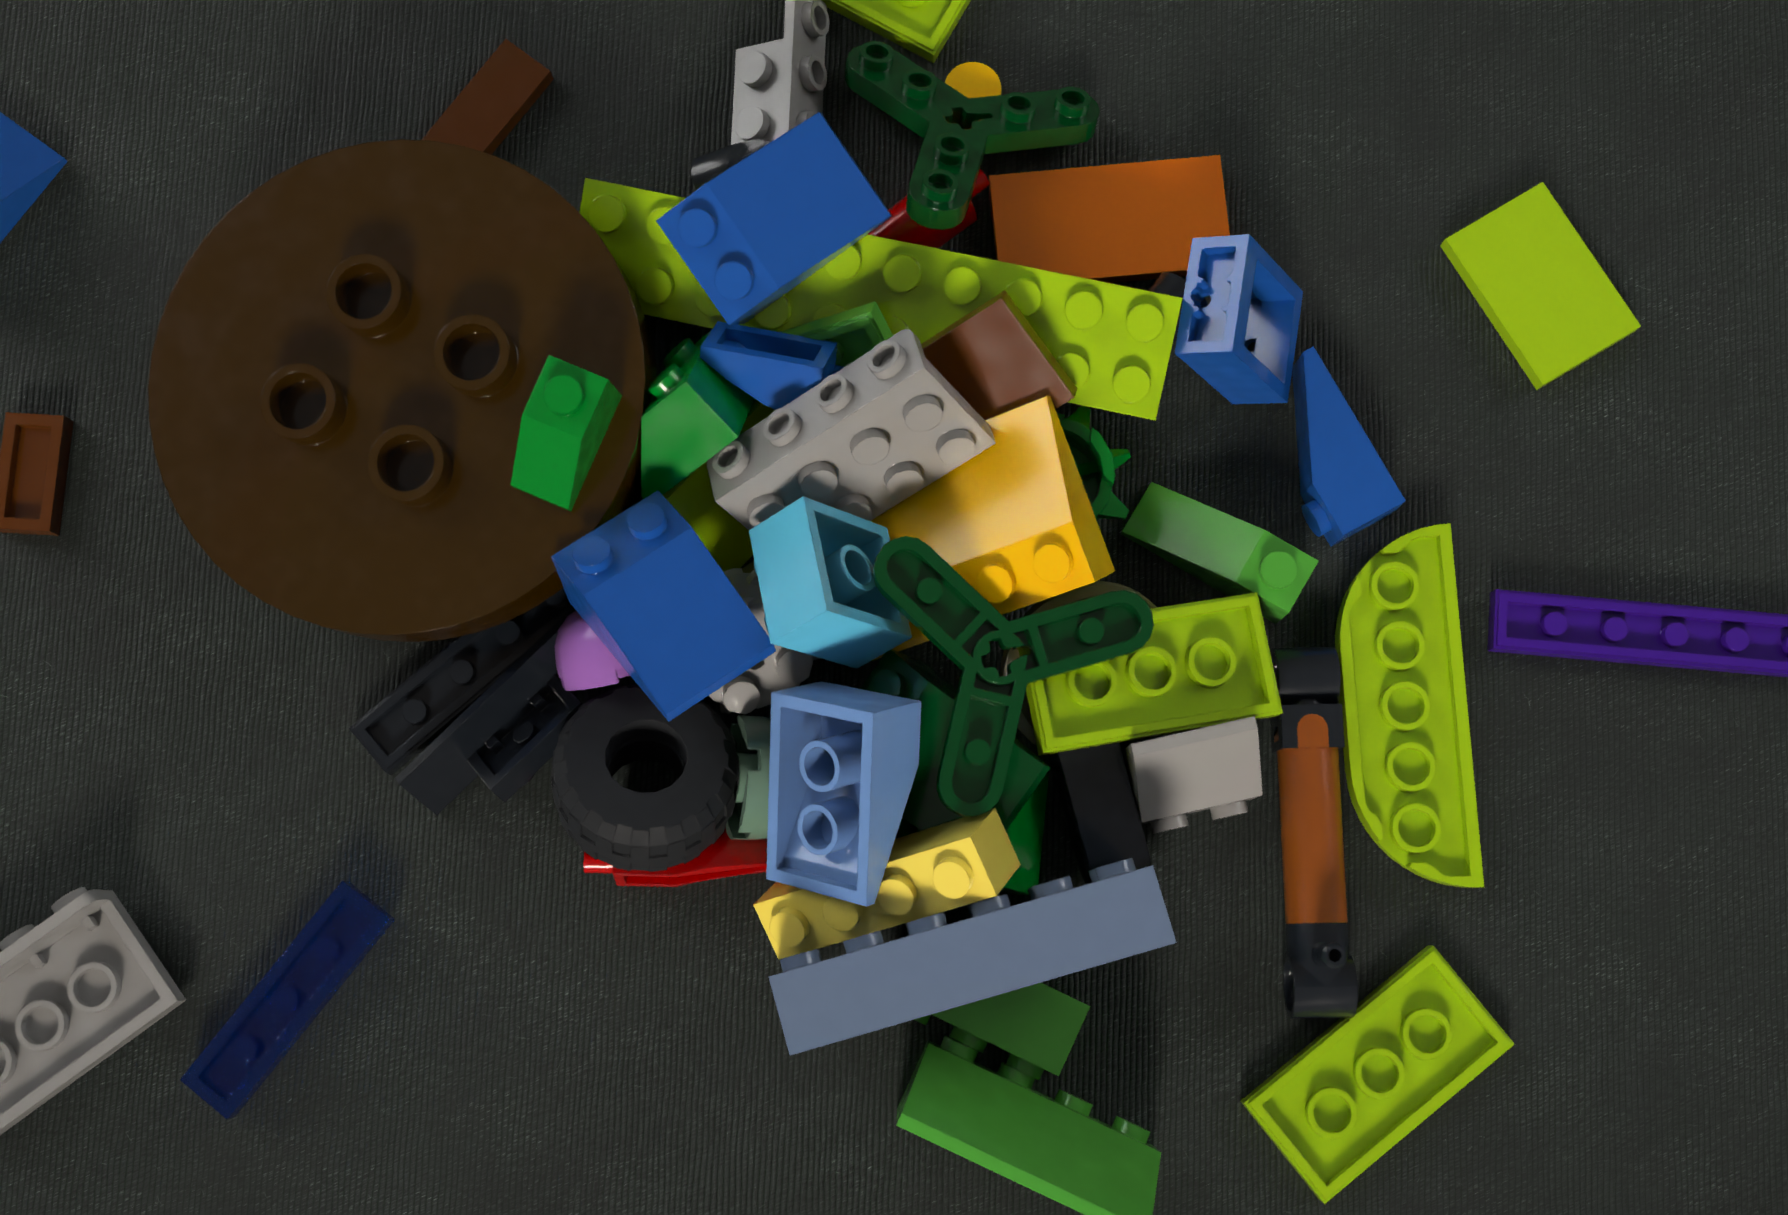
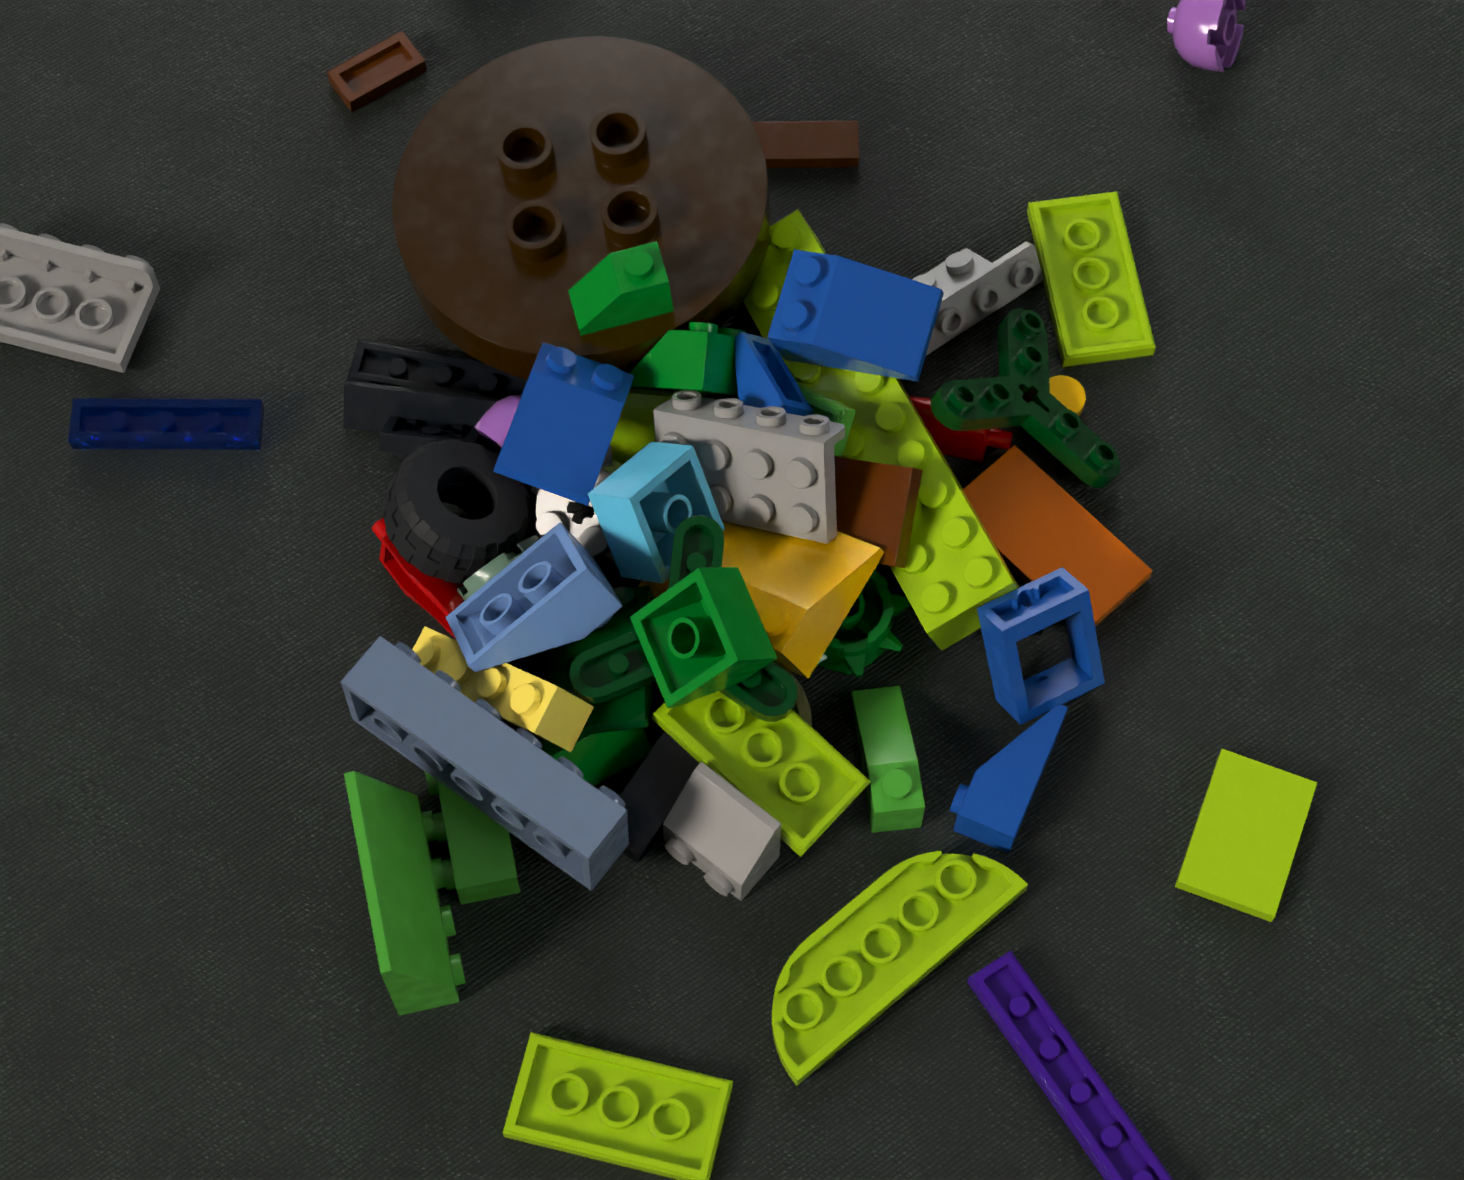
camera: 50 degrees right, 15 degrees down
(1027, 648) = (703, 635): none -> green slope
(1307, 737) = (805, 899): piece -> none

